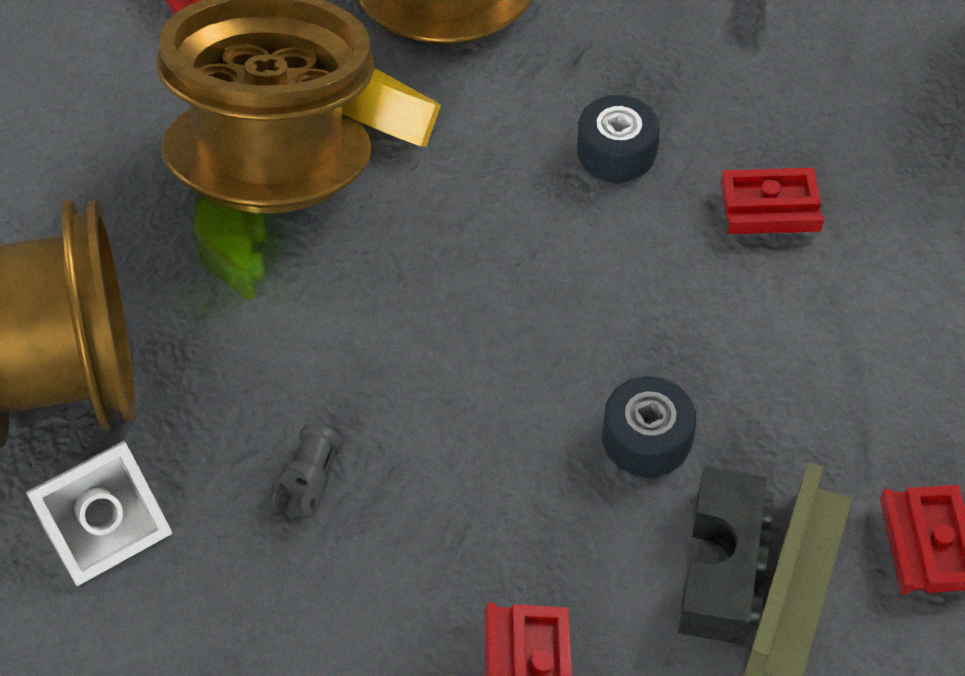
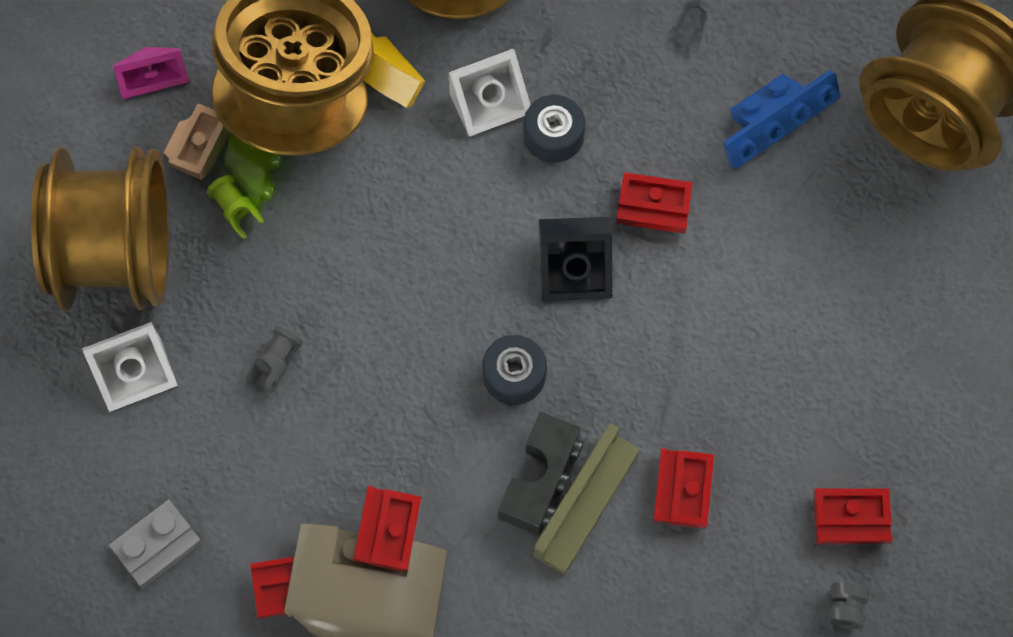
camera: 10 degrees right, 15 degrees up
(76, 158) = (150, 71): none -> dark pink slope
(154, 225) = (197, 143): none -> light nougat slope
(210, 287) = (232, 202): none -> lime piece
(523, 109) = (489, 92): none -> white slope
(691, 279) = (575, 258): none -> black slope
(890, 81) = (777, 112): none -> blue bracket

